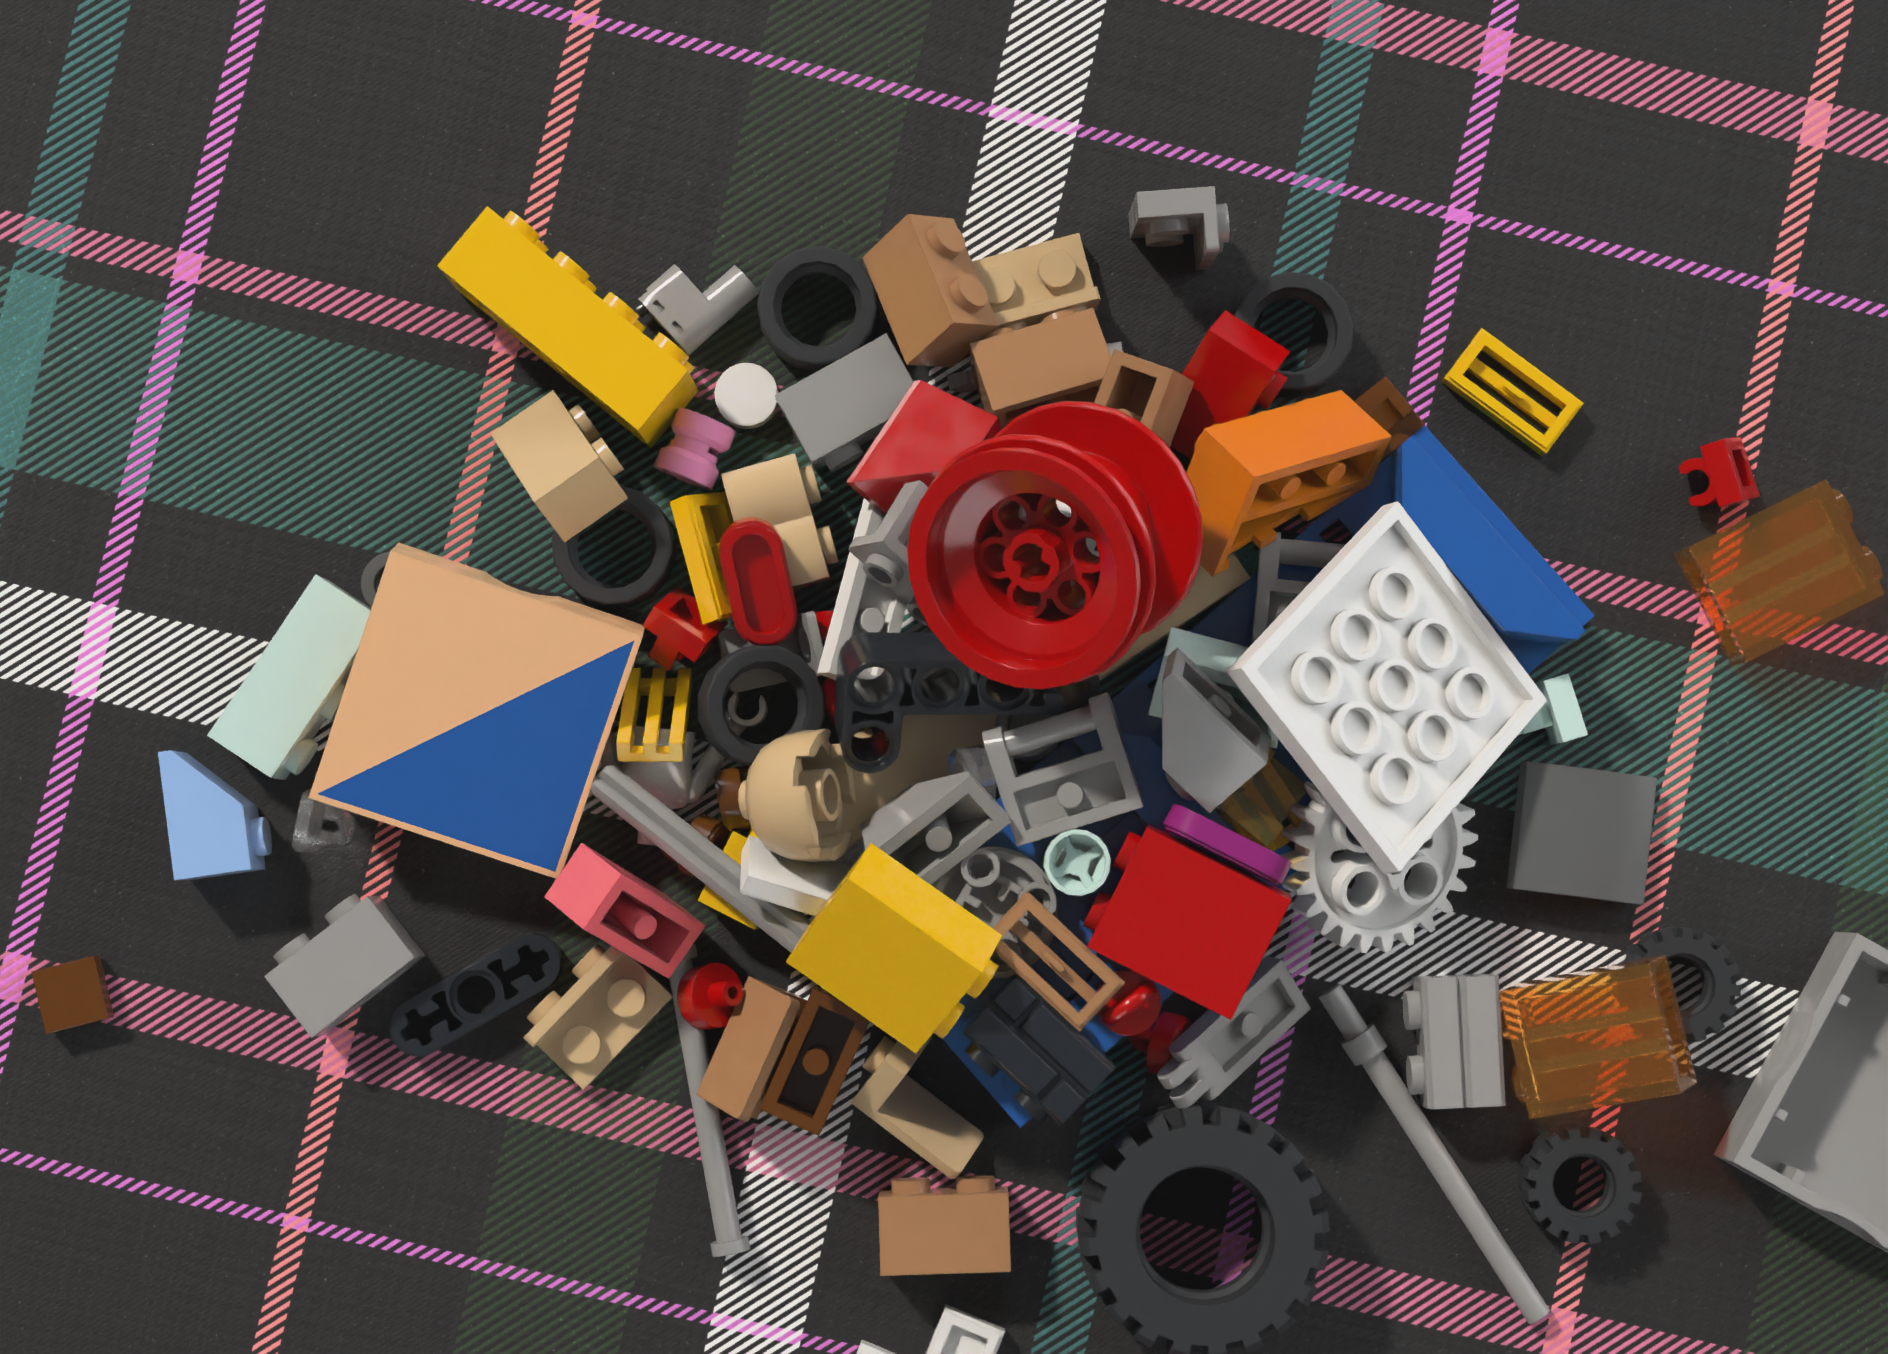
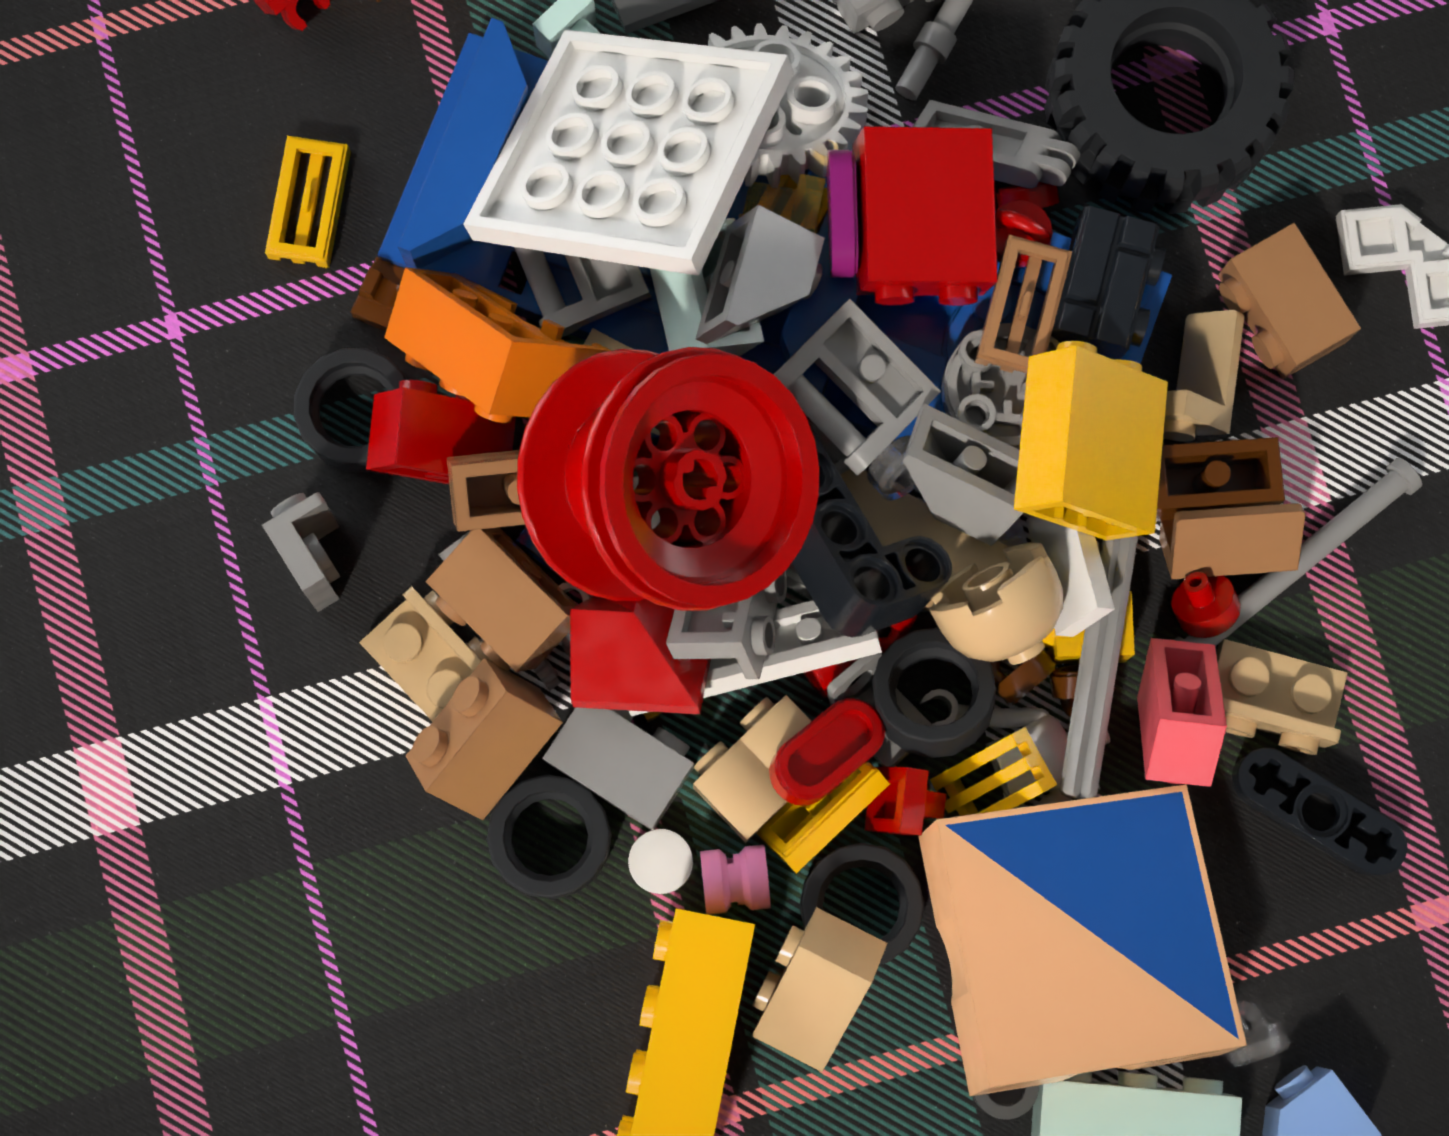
camera: 120 degrees left, 5 degrees down
(343, 964) = (1363, 942): light grey brick -> none
(692, 315) = (614, 952): light grey piece -> none
(1084, 864) = (933, 322): light aqua wheel -> none

